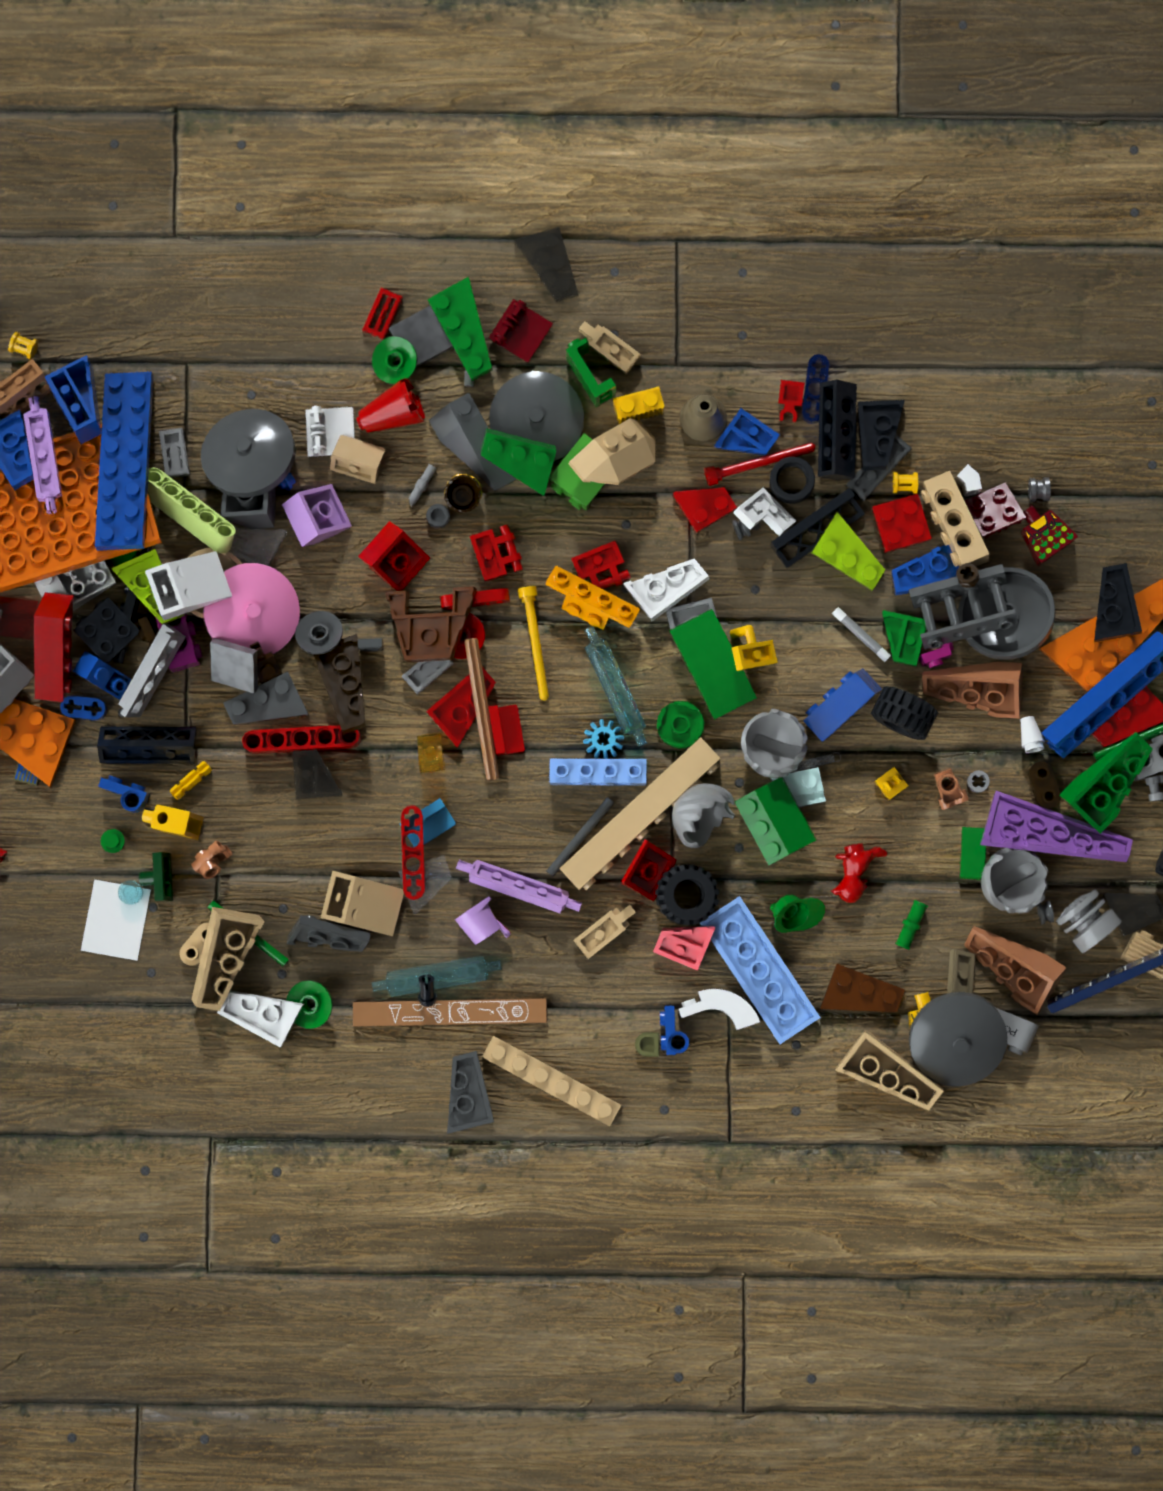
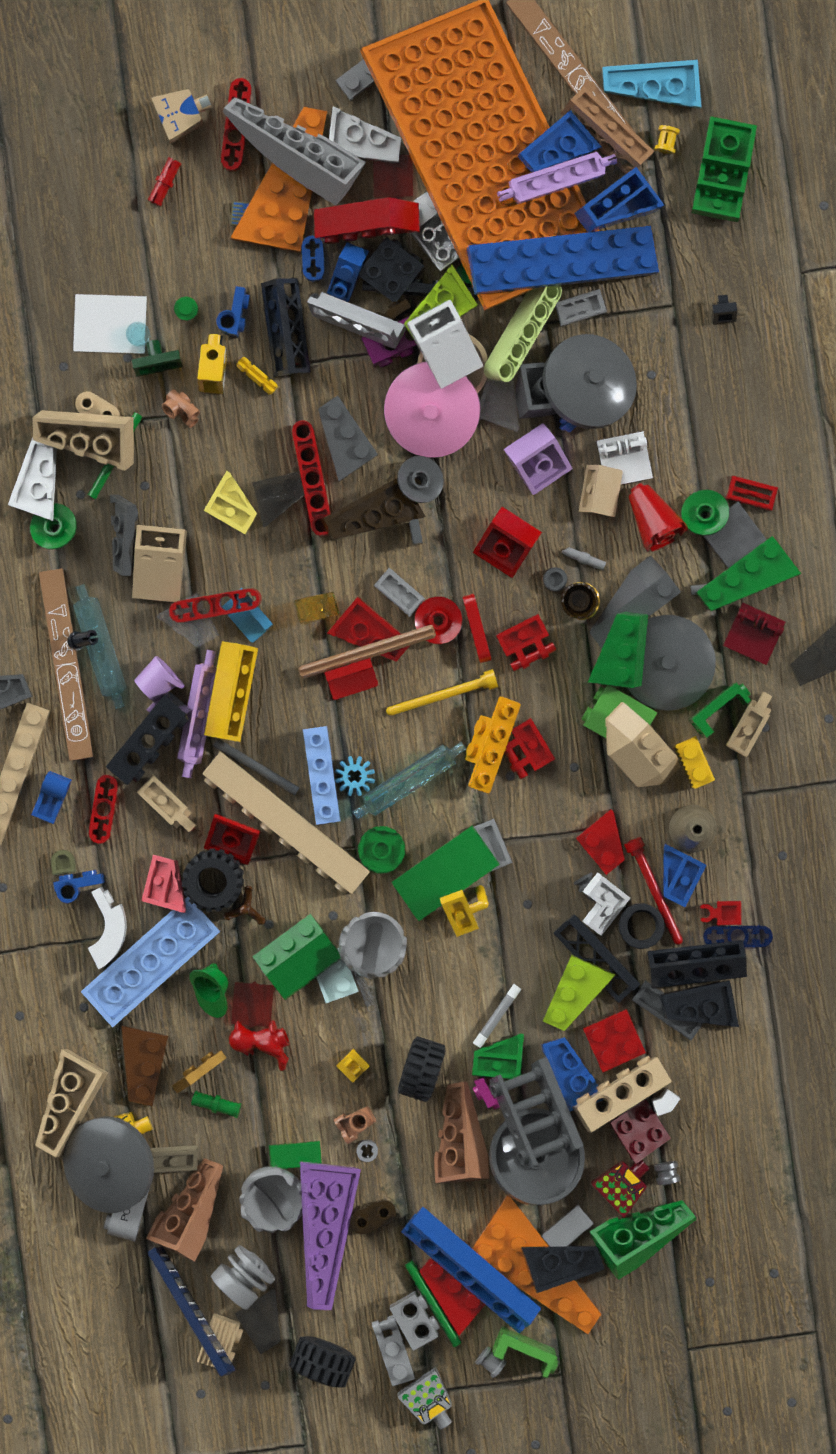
camera: 80 degrees right, 5 degrees up
(61, 295) = (724, 169): none -> green slope
(200, 314) = (724, 311): none -> black tile
(234, 665) = (374, 400): flat silver tile -> none
(266, 664) = (380, 430): dark brown plate -> none
(316, 823) = (231, 505): none -> light yellow wing
(431, 634) = (433, 592): reddish brown wing -> none
(500, 852) = (231, 691): none -> yellow brick
(558, 969) = (122, 764): none -> black brick
(580, 1045) = (51, 797): none -> blue plate
(584, 984) = (106, 827): none -> red beam
(665, 589) = (514, 816): white wing -> none
(699, 812) = (295, 880): light grey piece -> none
(720, 866) = (245, 908): none -> reddish brown piece
(816, 874) = (252, 1004): none -> clear red piece
(841, 703) = (423, 1006): blue wedge -> none
(878, 940) = (192, 1074): none -> pearl gold wing
(905, 482) = (655, 1038): yellow bush -> none
(963, 569) = (572, 1108): dark brown bush -> none
(1031, 735) = (419, 1197): white cone -> none
(1045, 912) = (246, 1234): dark grey bush -> none
(1081, 594) = (568, 1228): none -> light grey tile
(1100, 530) = (635, 1239): none -> green wedge
(1103, 786) = (377, 1274): green wedge -> none

